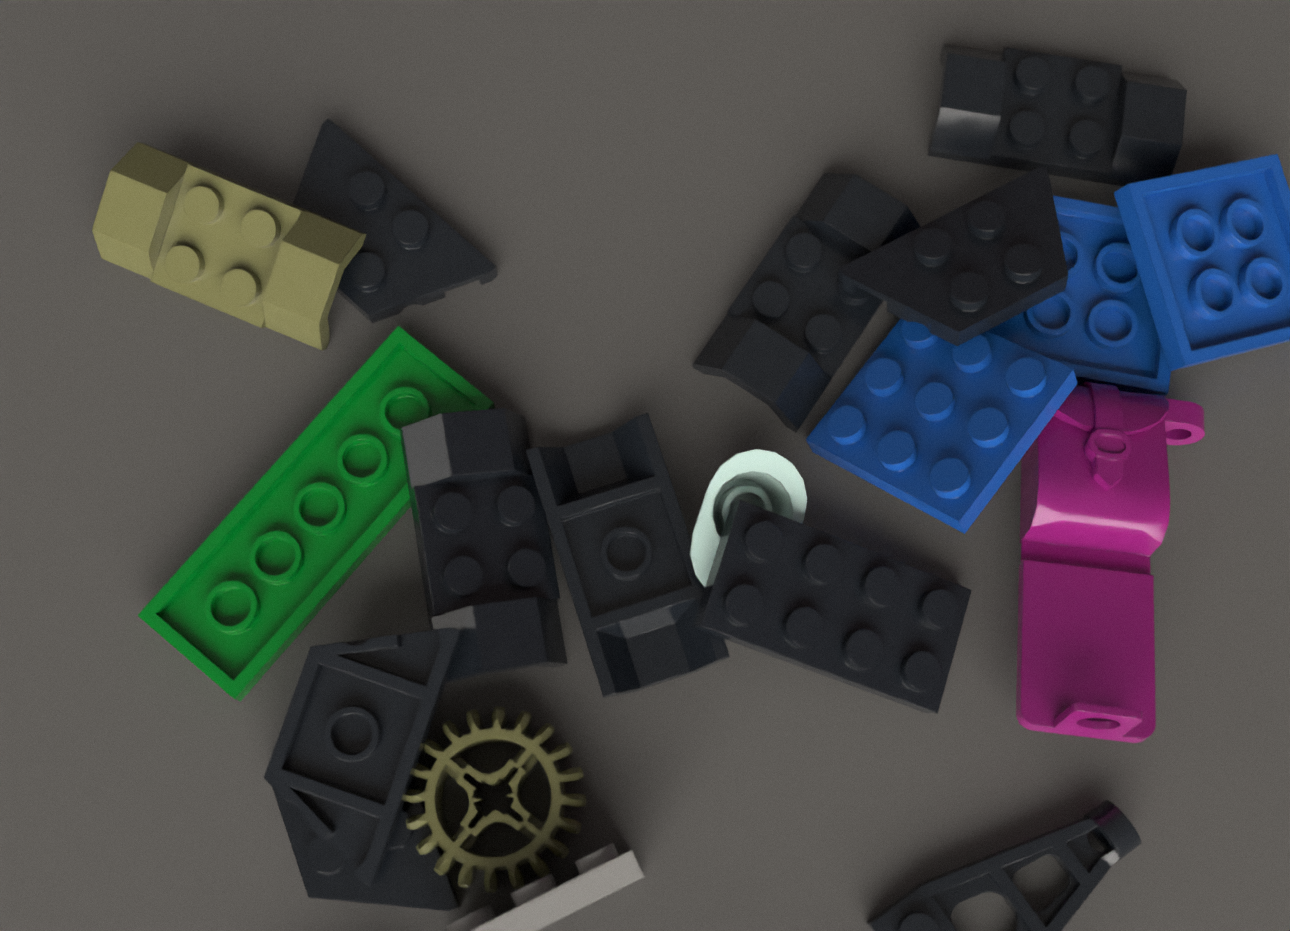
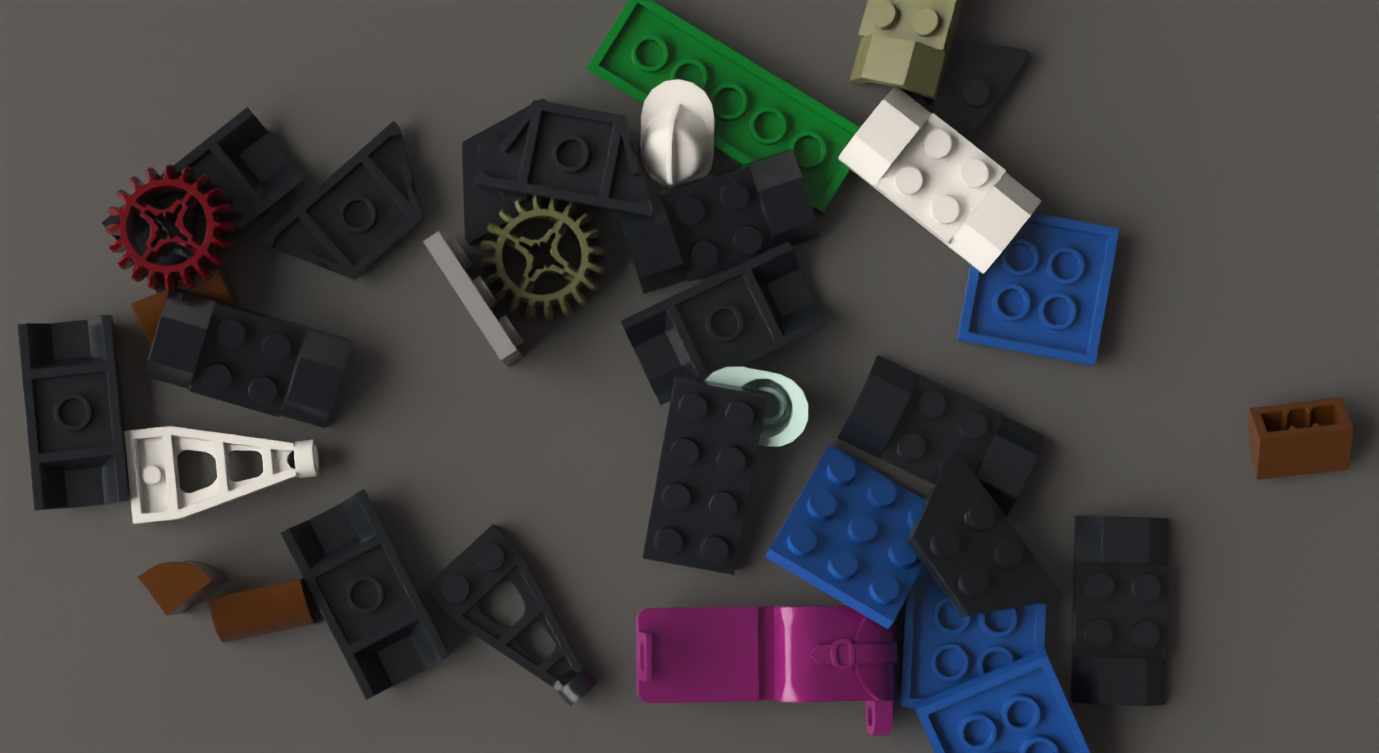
camera: 85 degrees right, 10 degrees up
(350, 583) = (677, 133): none -> white piece
(475, 243) = (939, 179): none -> white piece
(629, 152) = (1043, 291): none -> blue plate

